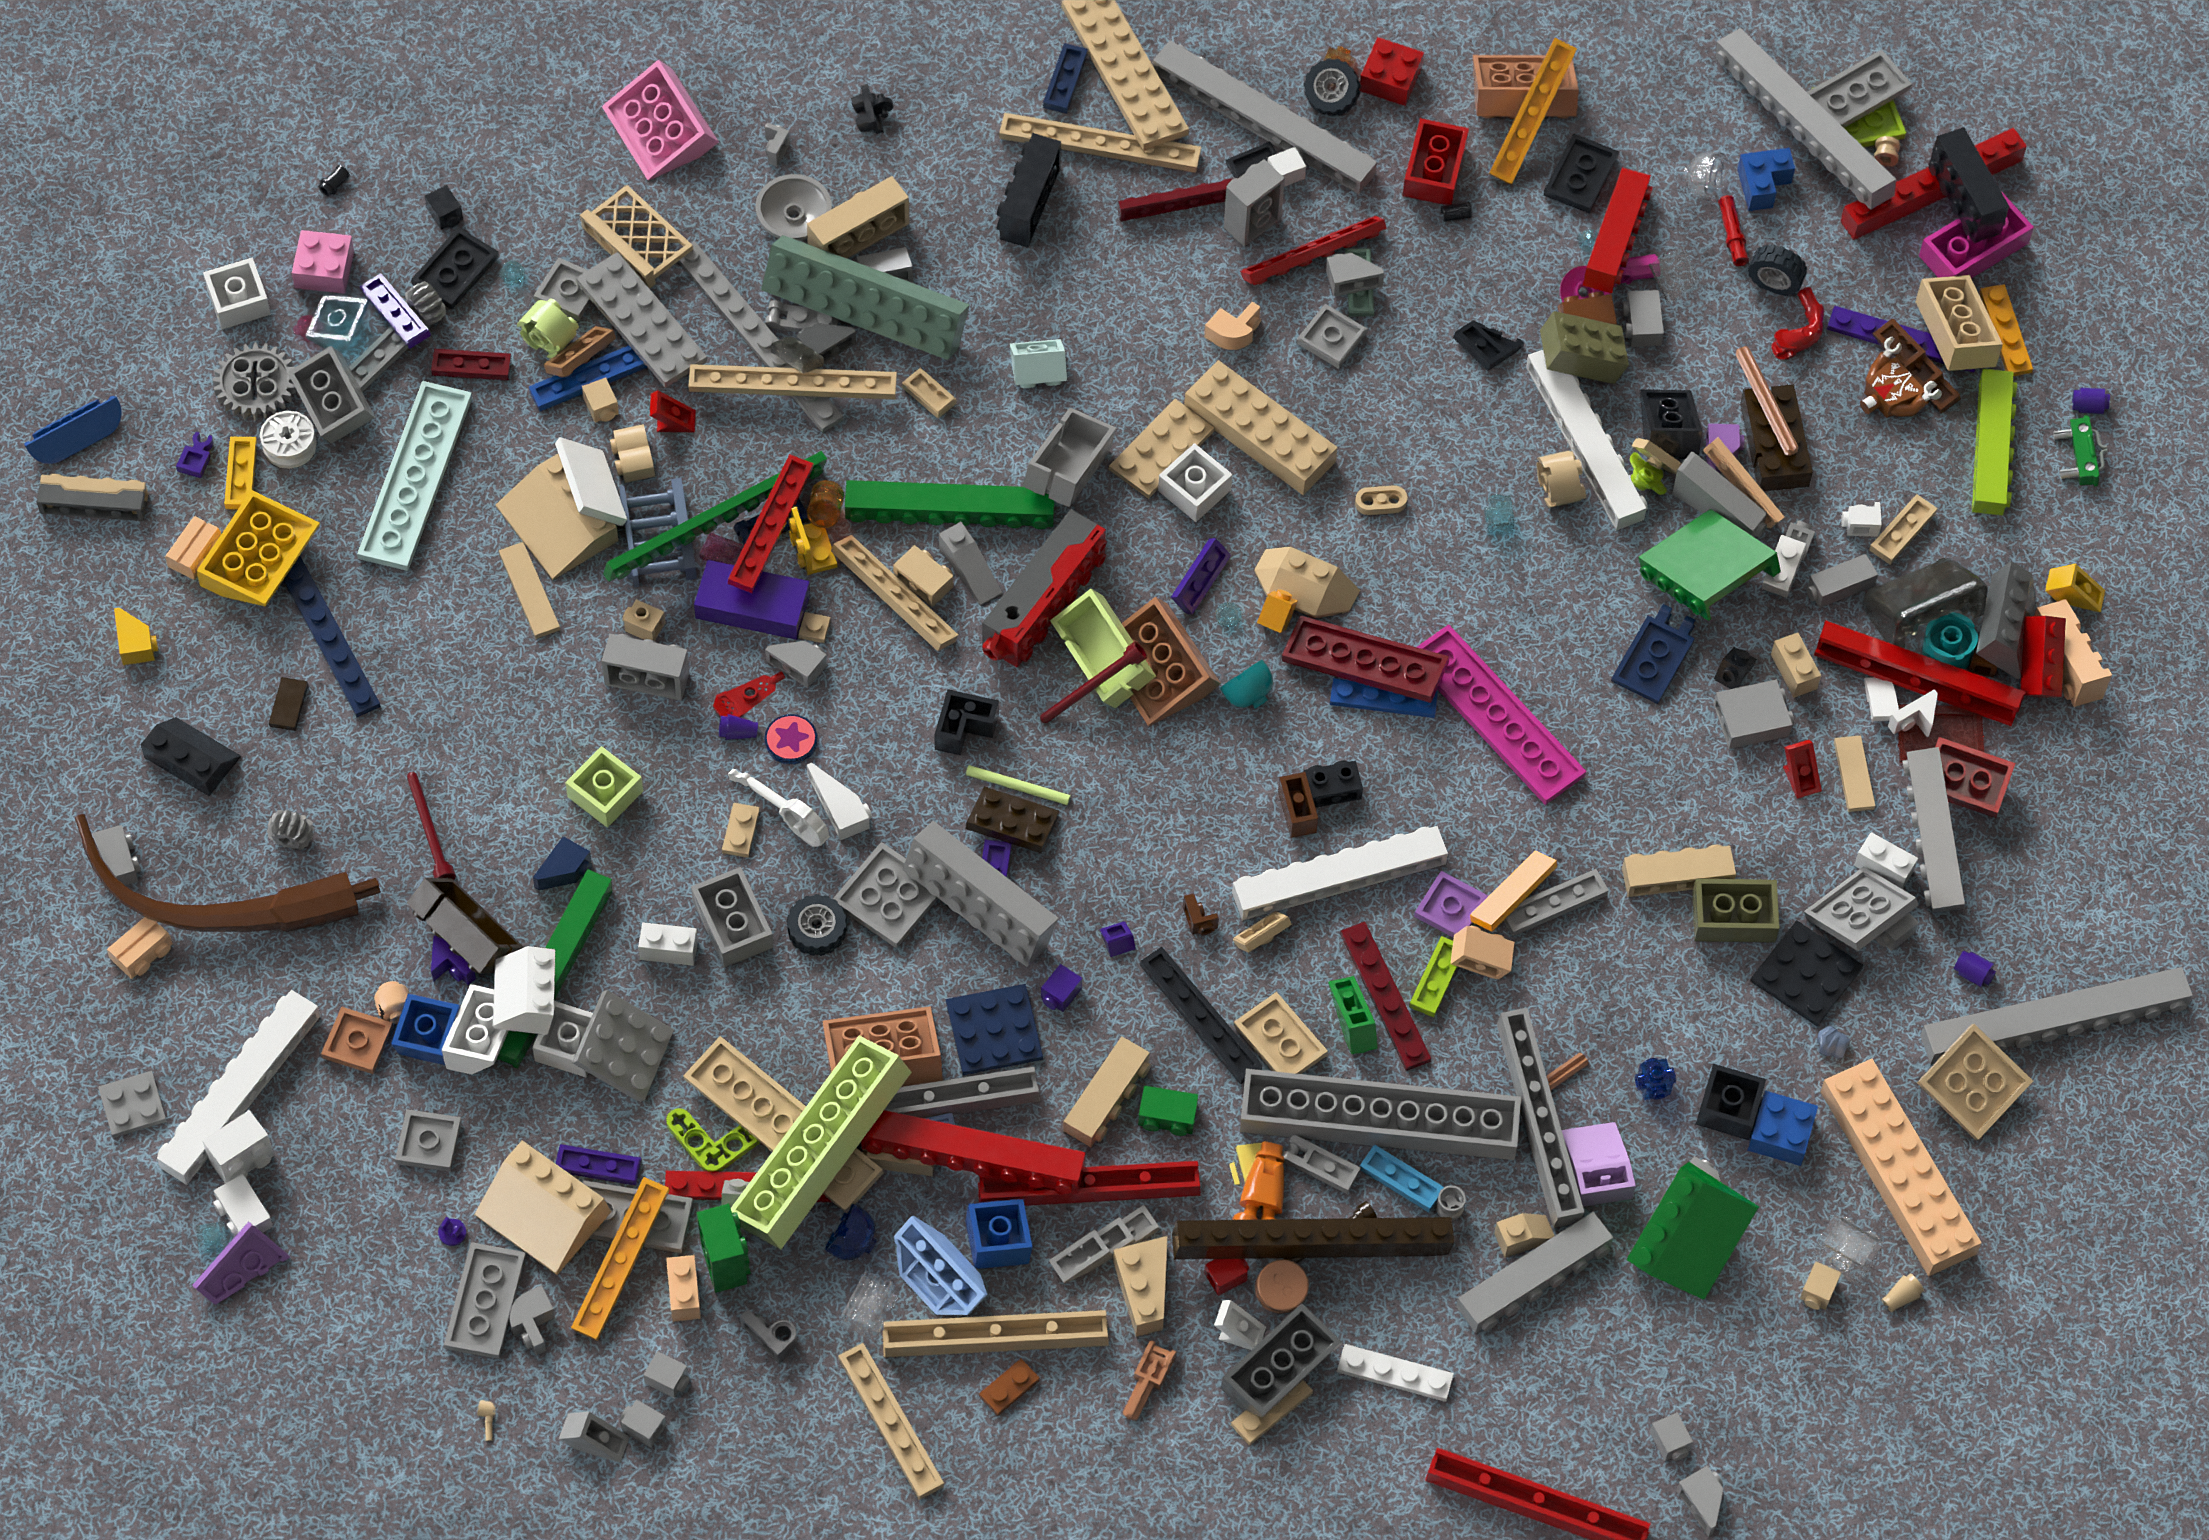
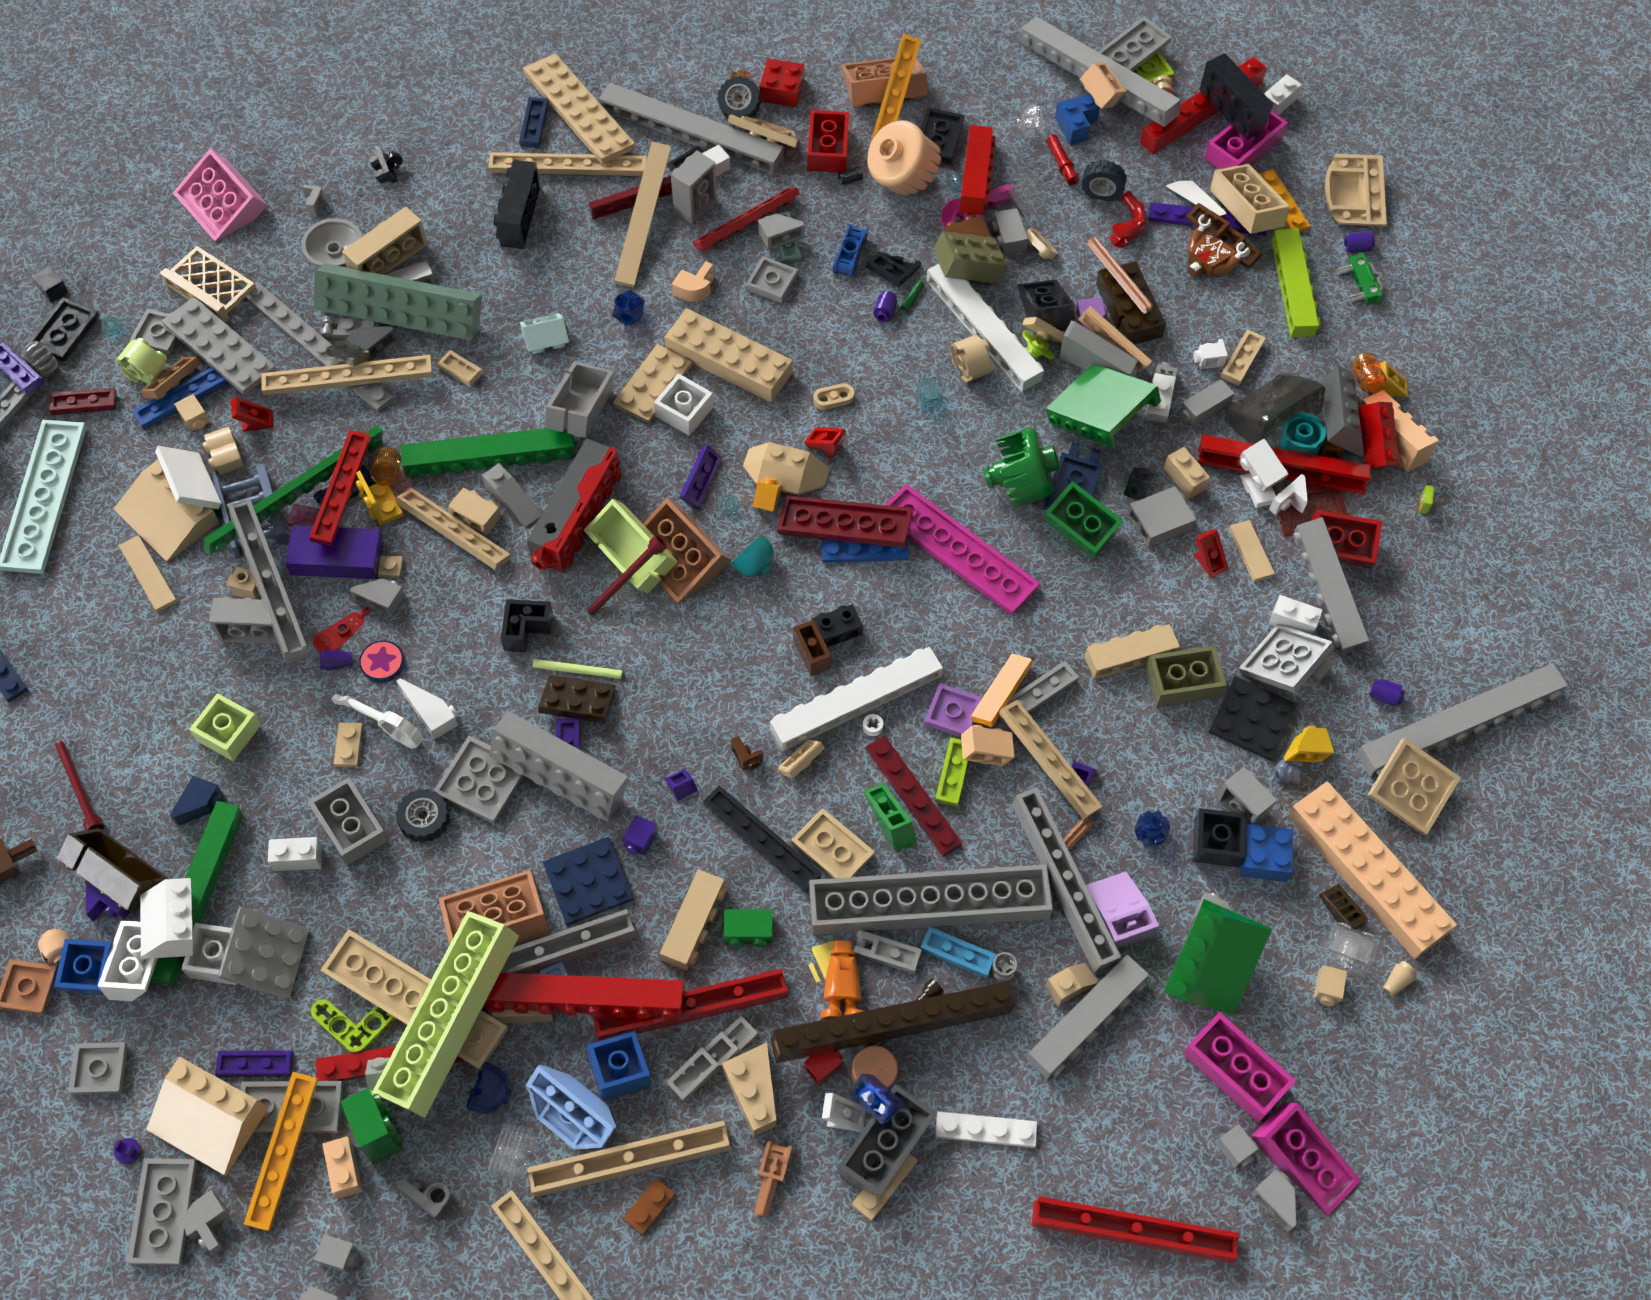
camera: 10 degrees left, 0 degrees up
(676, 624) = (268, 581): none -> light grey tile
(1147, 347) = (628, 308): none -> clear blue brick
(1184, 227) = (642, 215): none -> tan tile
(1277, 1313) = (876, 1098): none -> clear blue slope
(1351, 914) = (872, 731): none -> white bush
(1361, 134) = (761, 127): none -> tan wing
(1362, 553) = (827, 439): none -> red slope
(1444, 300) = (850, 250): none -> blue piece
(1467, 393) = (885, 306): none -> dark purple brick
(1505, 383) = (911, 297): none -> green piece
(1524, 204) = (903, 158): none -> light nougat piece
(1552, 980) = (1050, 759): none -> tan plate
(1586, 1005) = (1084, 772): none -> dark purple slope
(1596, 633) = (1026, 469): none -> green piece
(1653, 703) = (1083, 520): none -> green brick
(1680, 340) = (1036, 240): none -> tan plate
(1692, 1354) = (1239, 1067): none -> dark pink brick
(1746, 1461) = (1305, 1156): none -> dark pink slope
(1771, 1058) = (1246, 795): none -> light grey brick
(1802, 142) = (1103, 85): none -> light nougat brick
(1864, 1016) = (1310, 746): none -> yellow slope
(1869, 1224) = (1361, 918): none -> dark brown slope
(1887, 671) = (1263, 465): none -> white brick
(1894, 304) = (1195, 194): none -> white sticker
(2037, 187) = (1283, 93): none -> white brick
(2049, 575) = (1368, 372): none -> clear orange wheel
(2086, 745) = (1426, 499): none -> lime tile
(2103, 330) = (1356, 190): none -> tan slope

